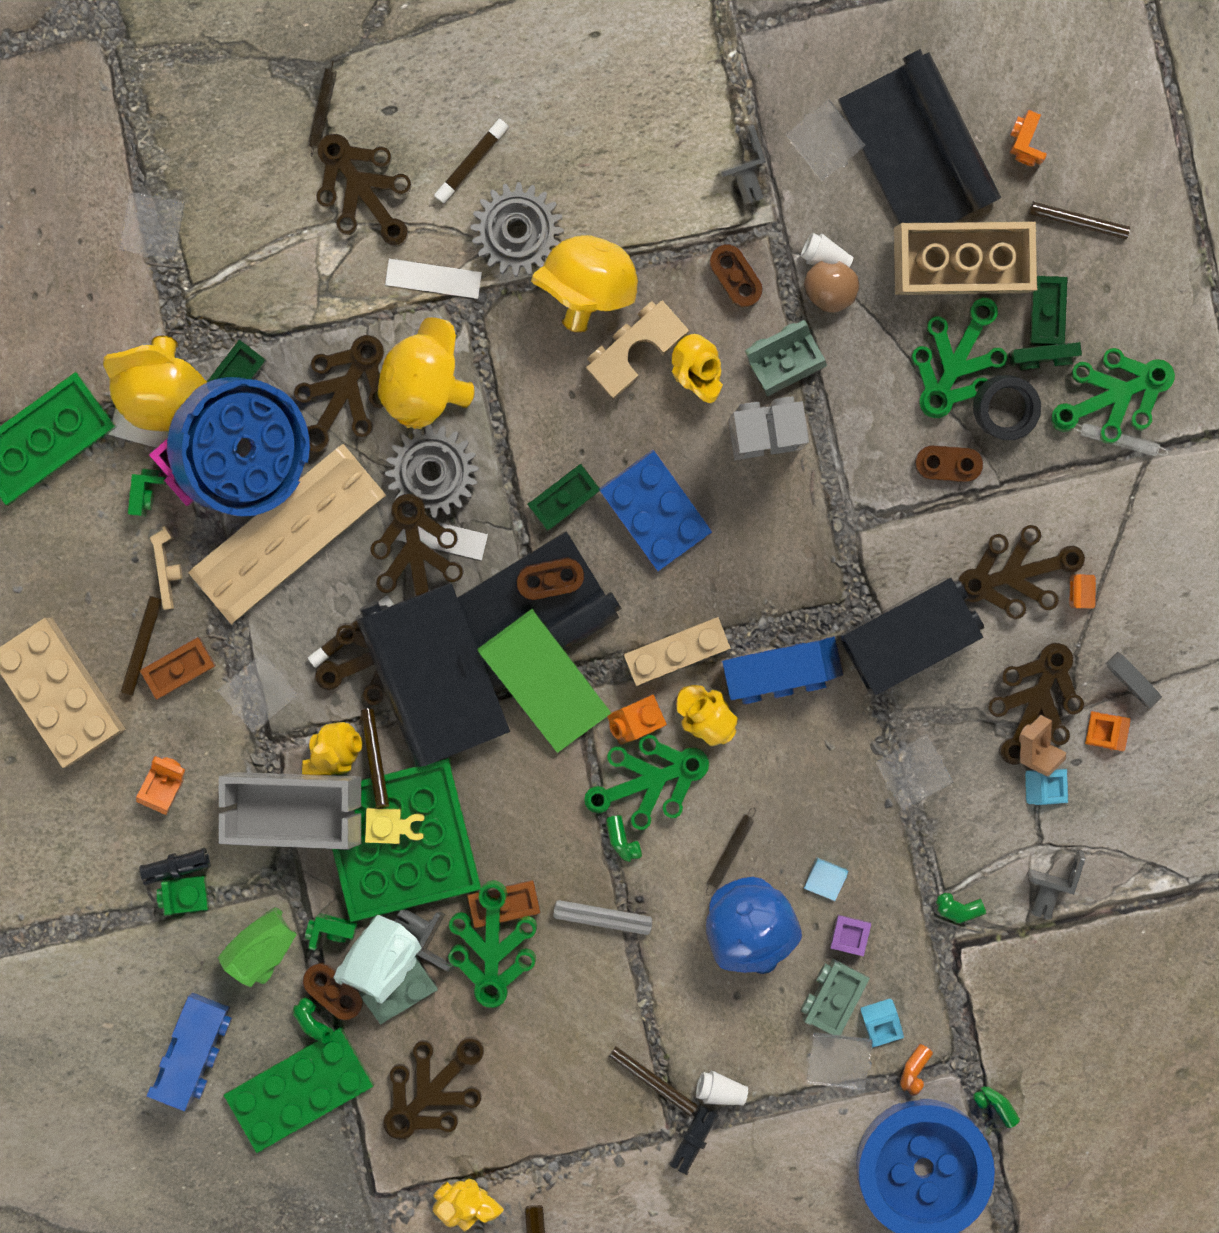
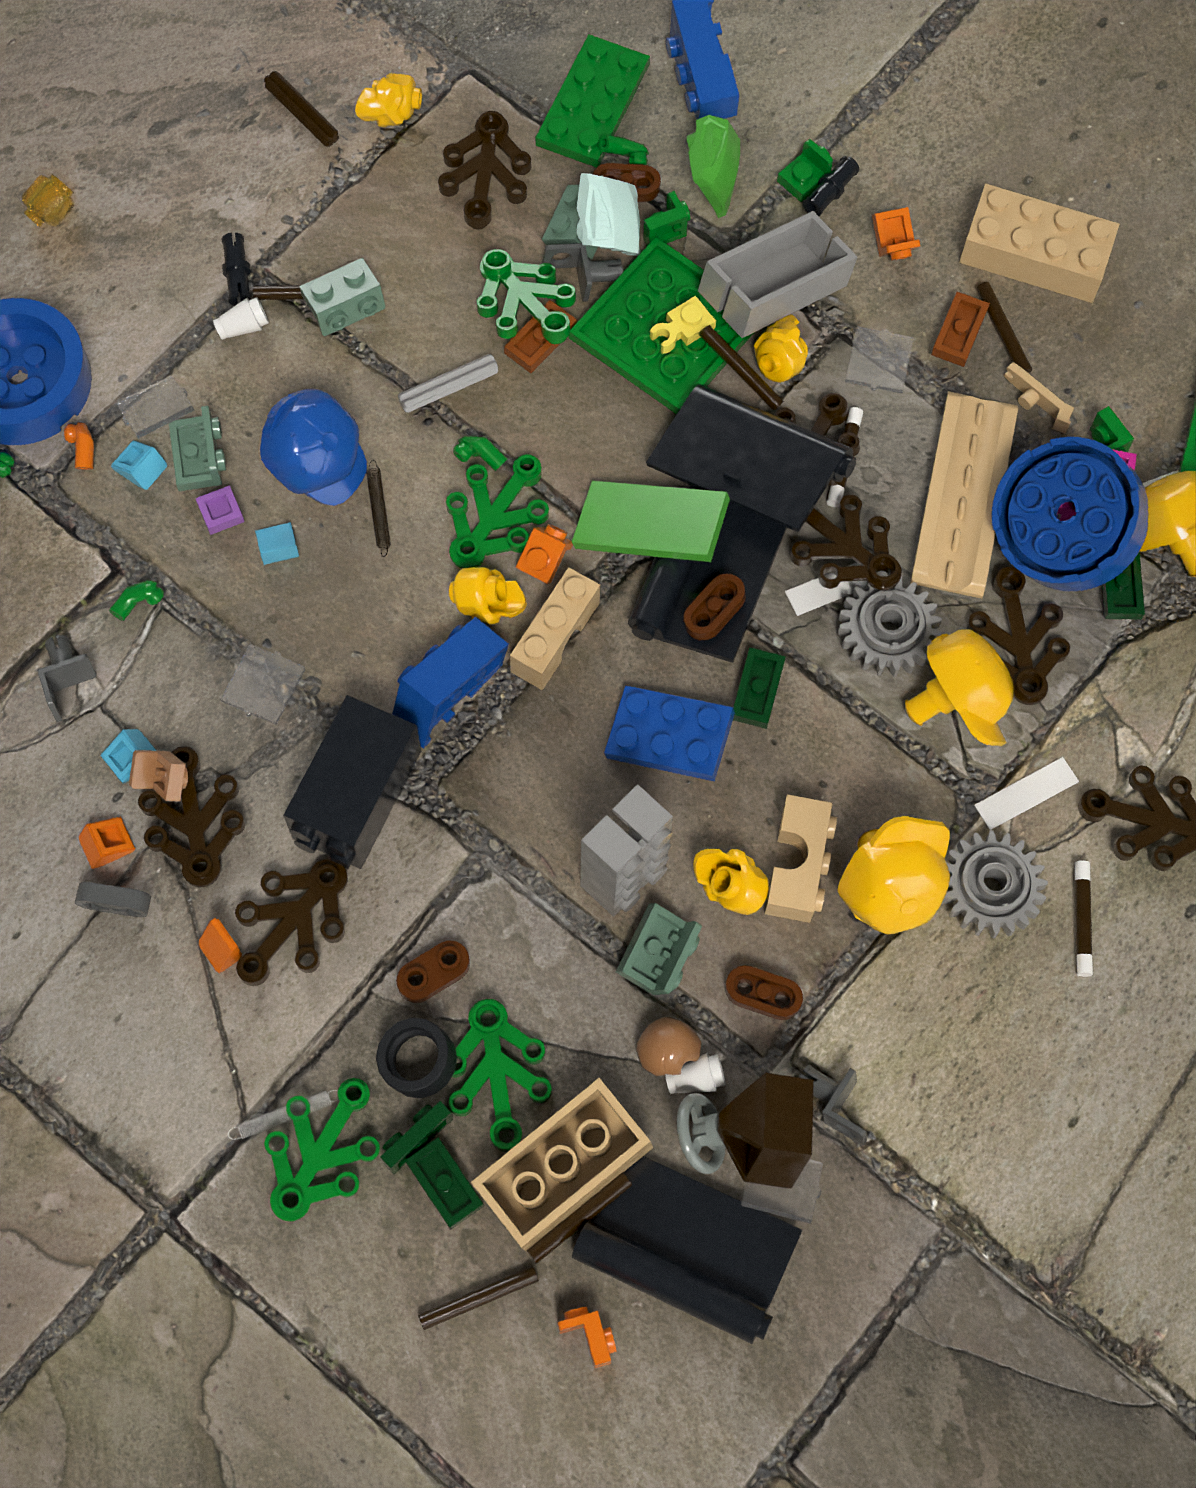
camera: 145 degrees right, 20 degrees down
(630, 1051) = (343, 296): none -> sand green bracket
(819, 177) = (762, 1129): none -> dark brown piece
(977, 217) = (579, 1218): none -> dark brown bar

